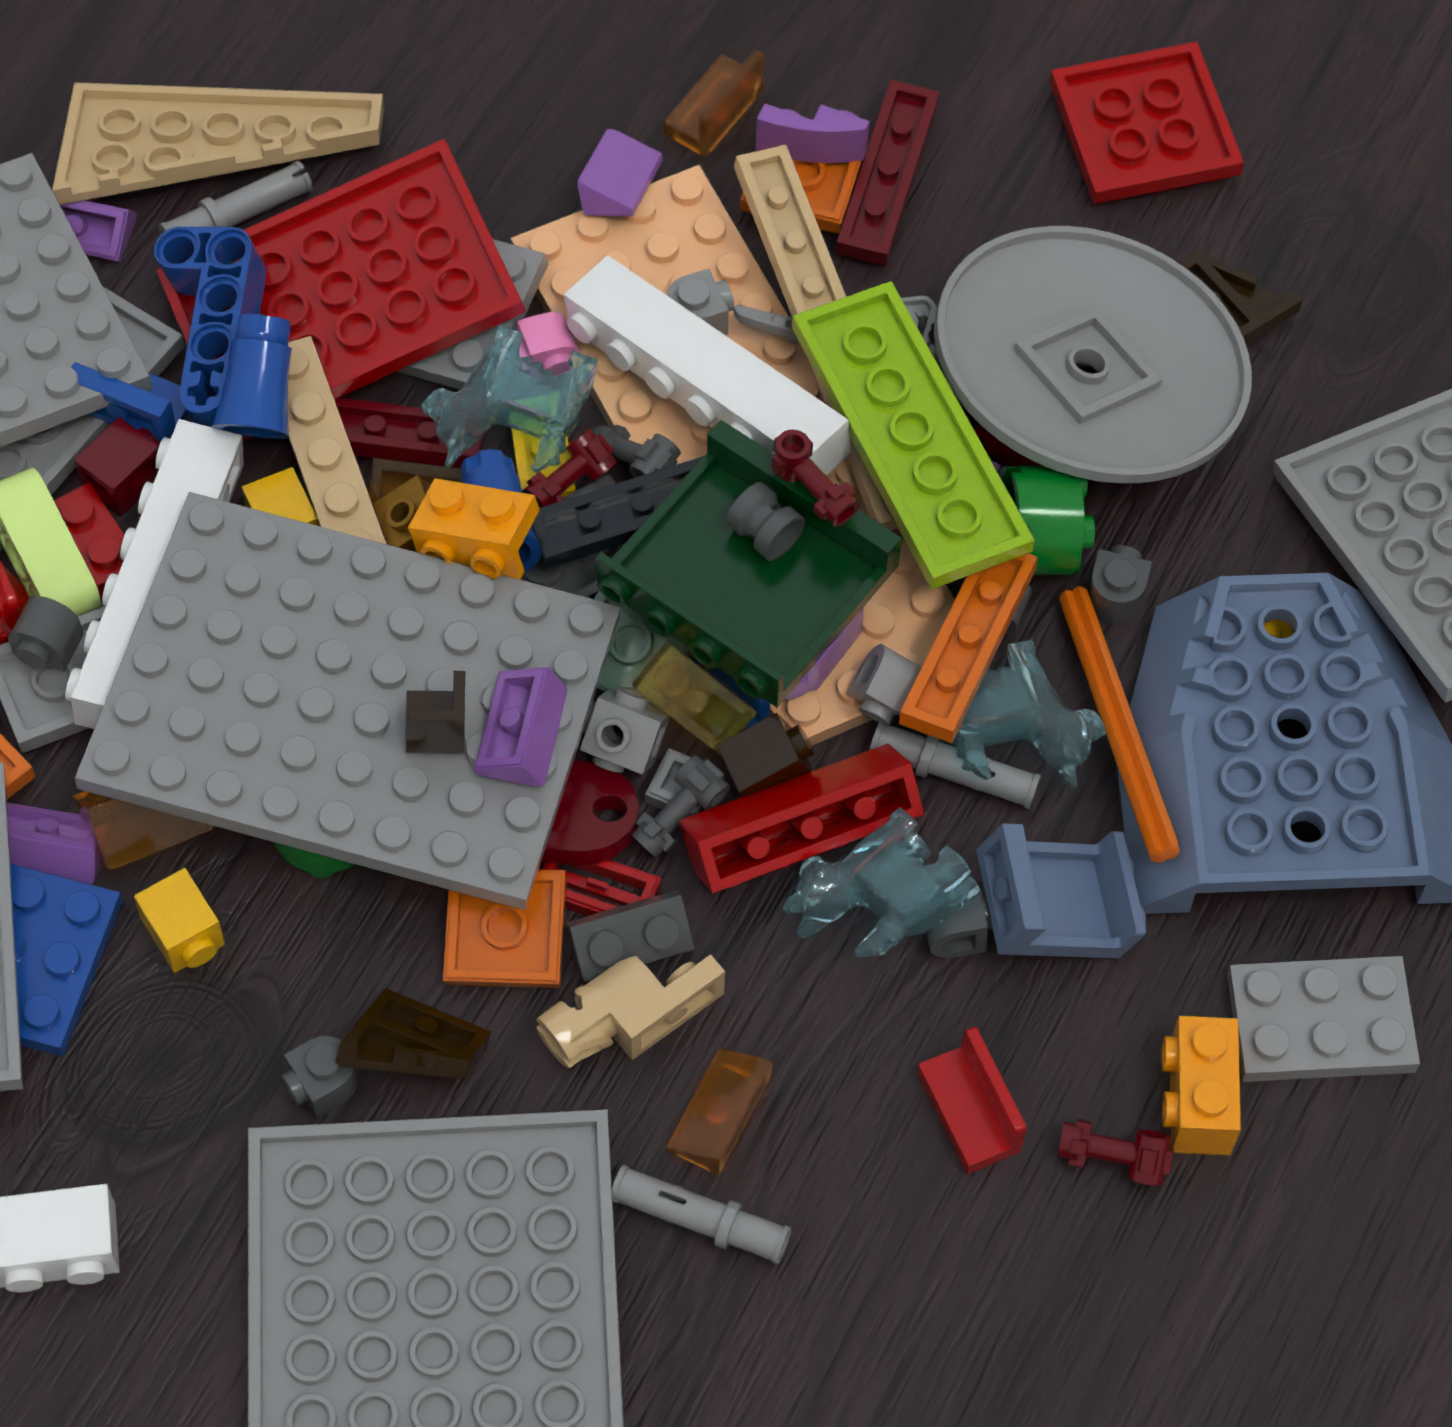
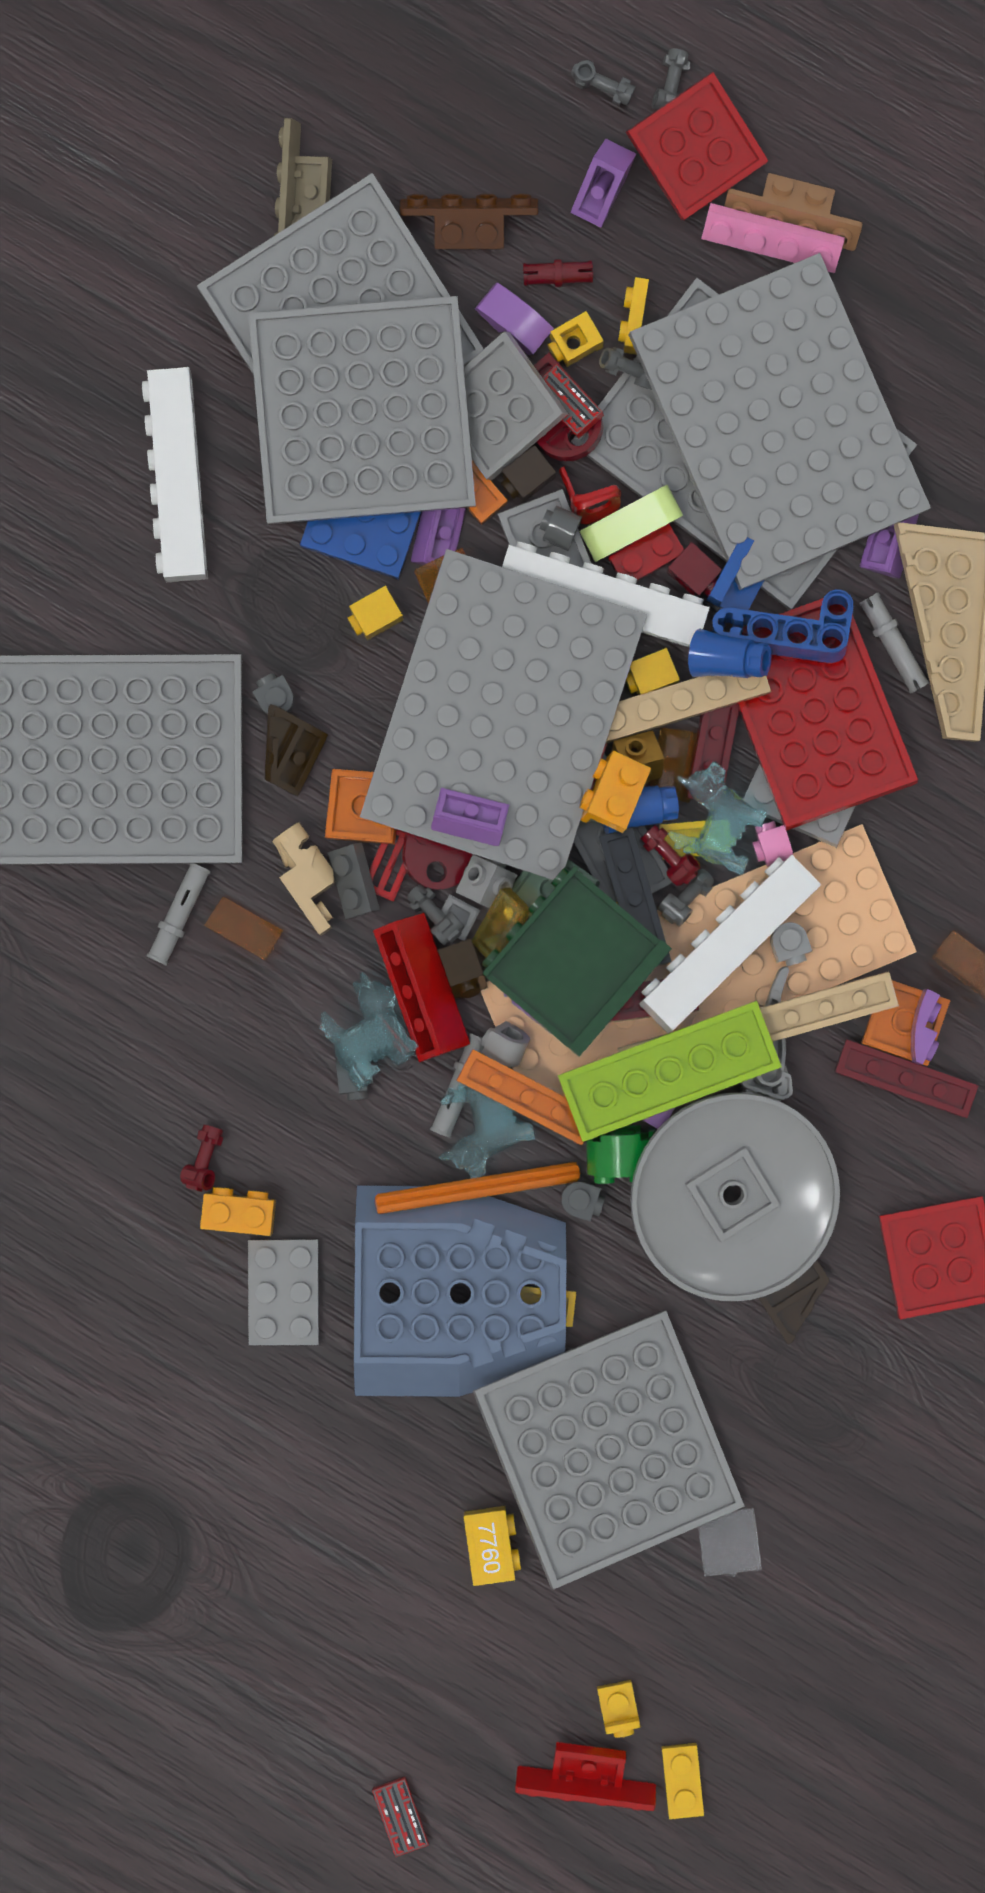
camera: 95 degrees right, 25 degrees up
(436, 719) = (473, 764): dark brown panel -> none
(617, 175) = (903, 896): medium lavender slope -> none
(765, 521) = (601, 973): dark grey wheel -> none
(793, 464) = (633, 991): dark red bar -> none
(973, 1103) = (237, 1075): red panel -> none
(1060, 895) = (362, 1140): sand blue panel -> none

